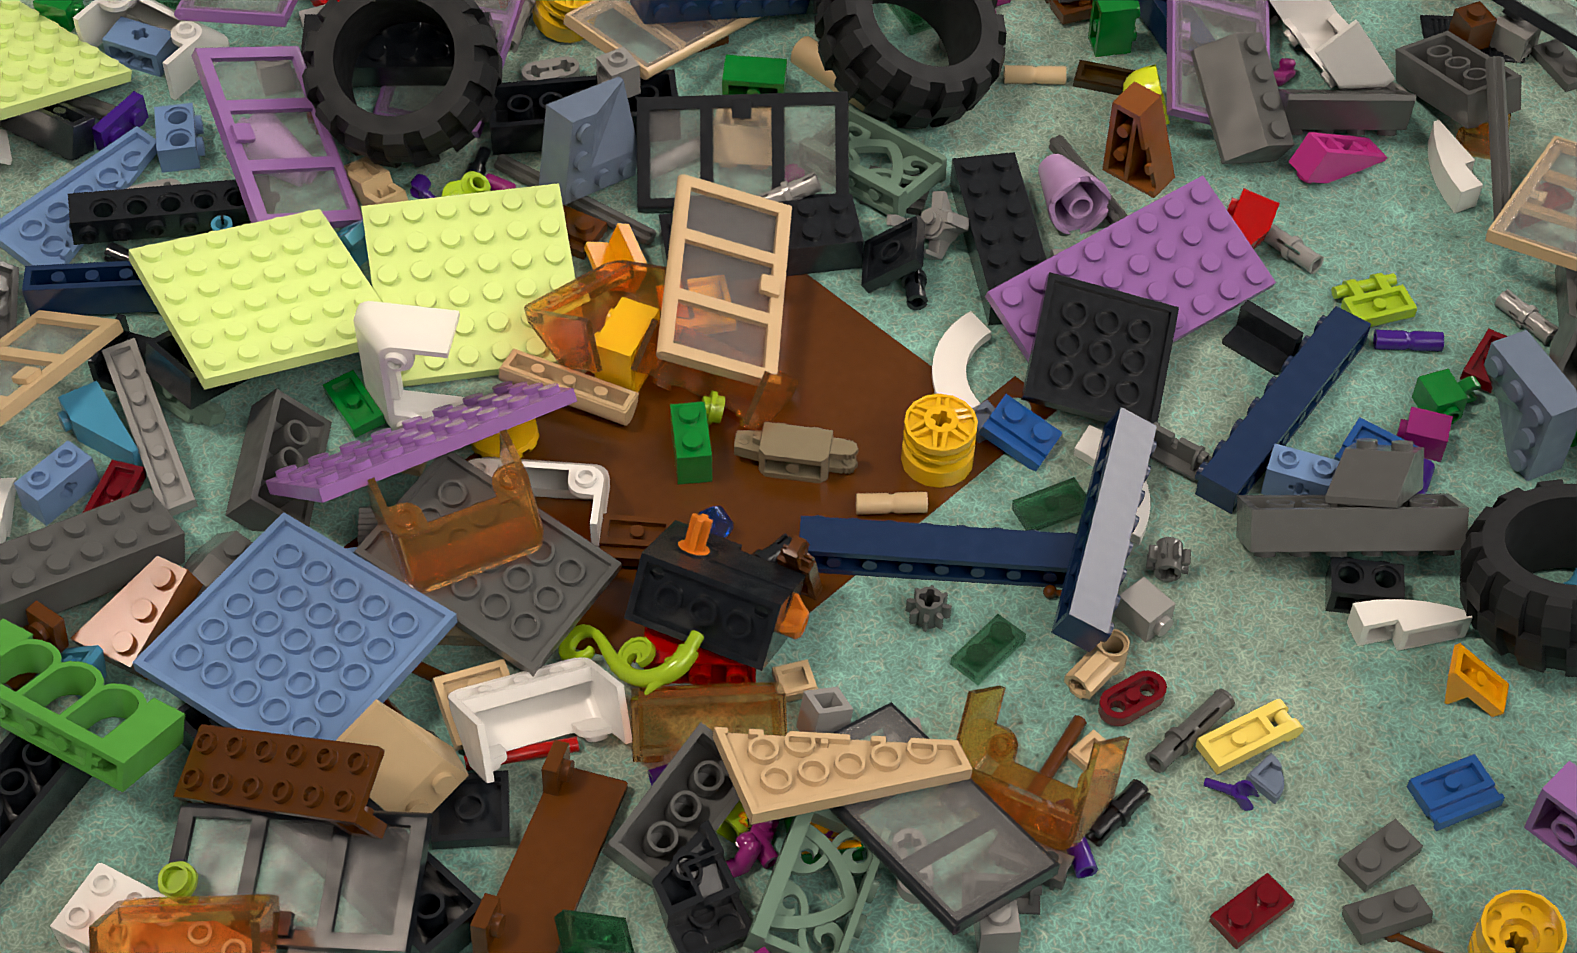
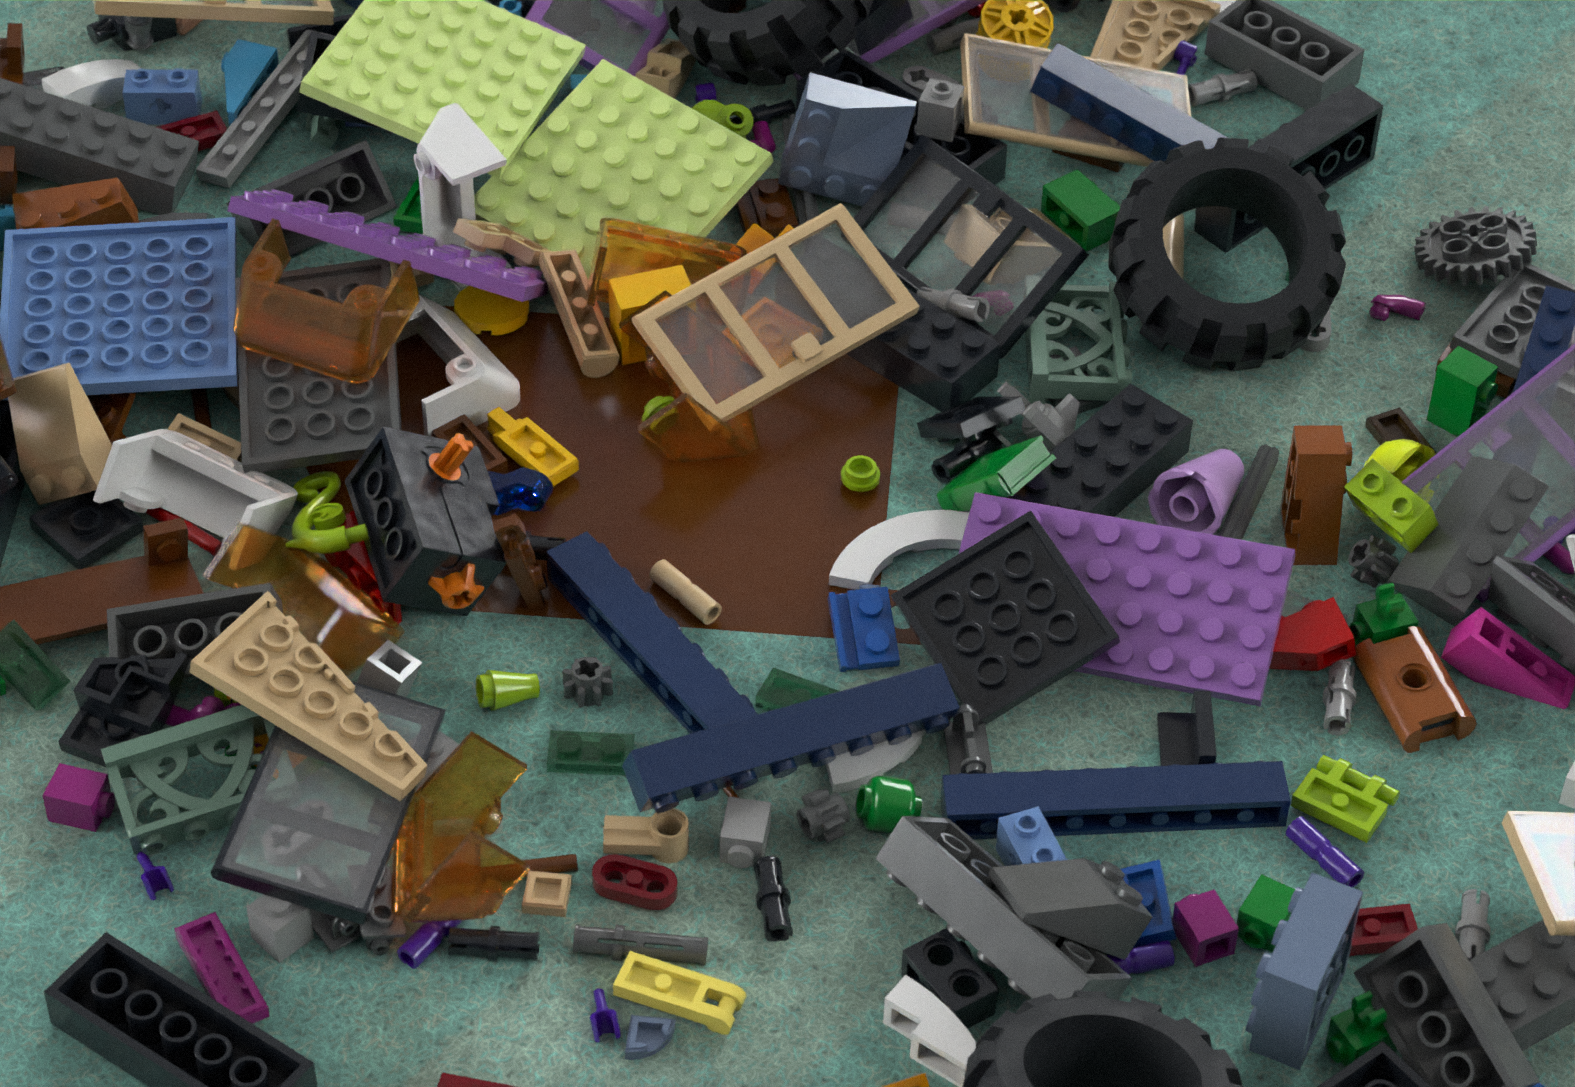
camera: 50 degrees right, 5 degrees down
(450, 384) = (499, 239): none -> tan plate
(668, 498) = (531, 446): none -> yellow hinge
(691, 442) = (601, 420): green brick -> none
(795, 679) = (424, 644): tan tile -> none
(797, 452) = (670, 494): dark tan hinge -> none
(876, 343) = (860, 474): none -> lime plate
(886, 661) = (503, 688): none -> lime cone
(939, 440) = (779, 573): yellow wheel -> none
(968, 274) = (996, 474): none -> green piece
(1028, 74) = (1342, 391): tan piece -> none
(1188, 519) = (885, 801): none -> green head
(1192, 153) = (1373, 561): none -> dark grey gear
(1196, 111) = (1391, 505): none -> lime brick
(1210, 633) = (773, 899): none -> black pin
(1259, 178) = (1382, 618): none -> green brick
(1321, 211) = (1413, 689): none -> dark orange piece

